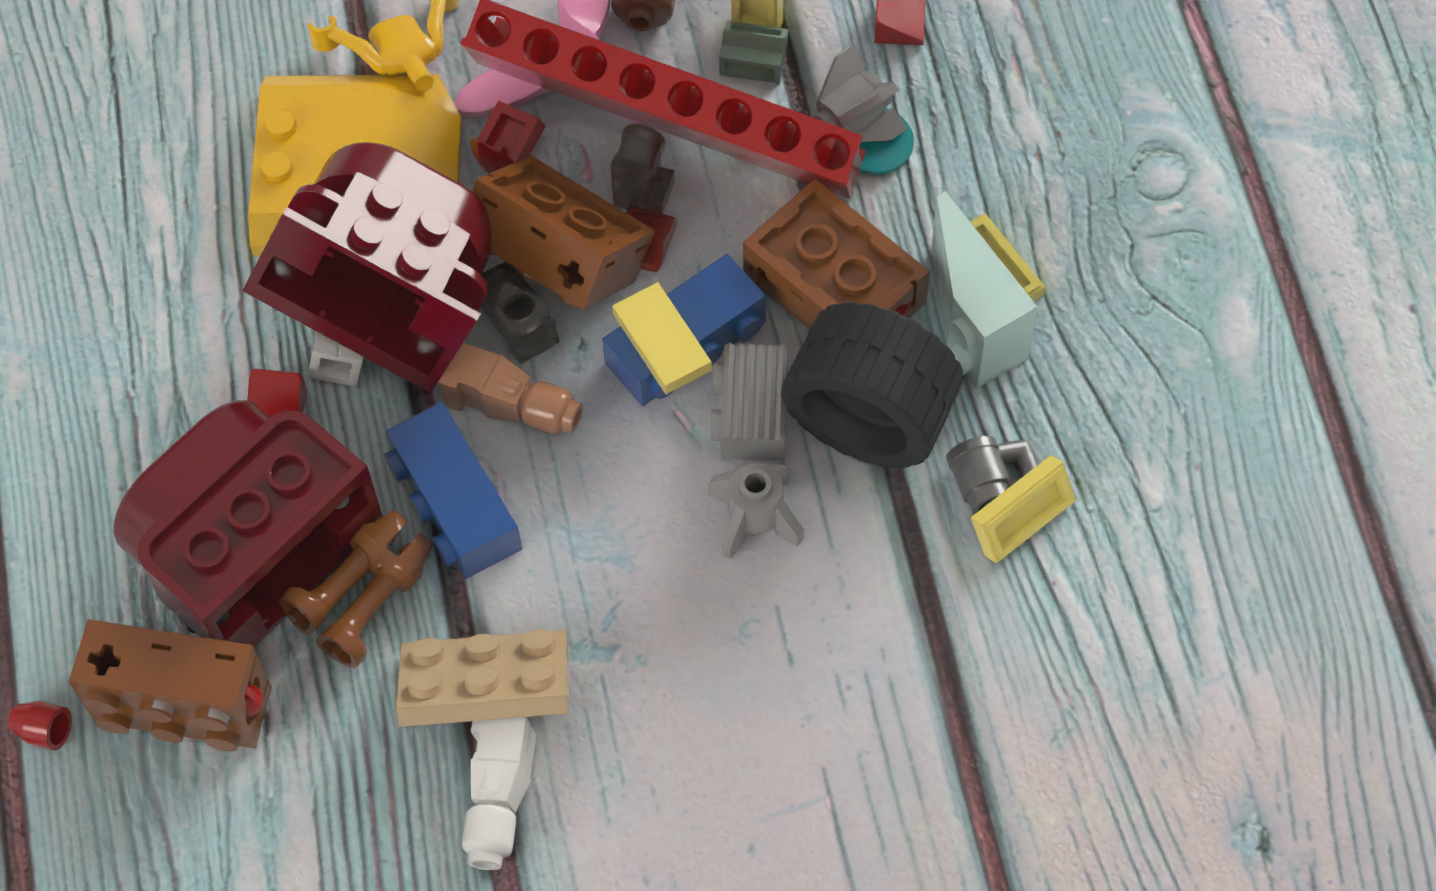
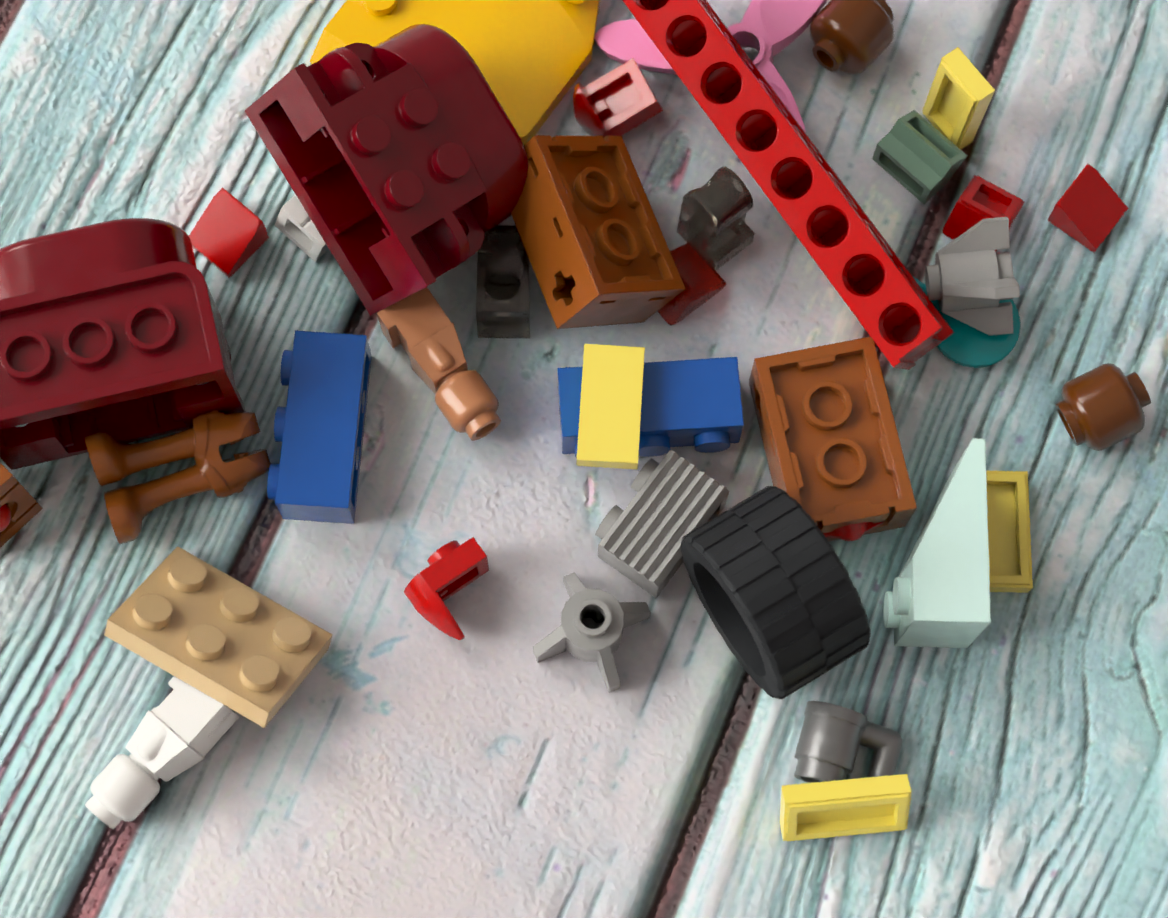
camera: 30 degrees right, 10 degrees up
(621, 533) = (449, 571): none -> red plate
(817, 60) = (979, 202): none -> red slope
(1005, 137) = (1103, 406): none -> reddish brown head

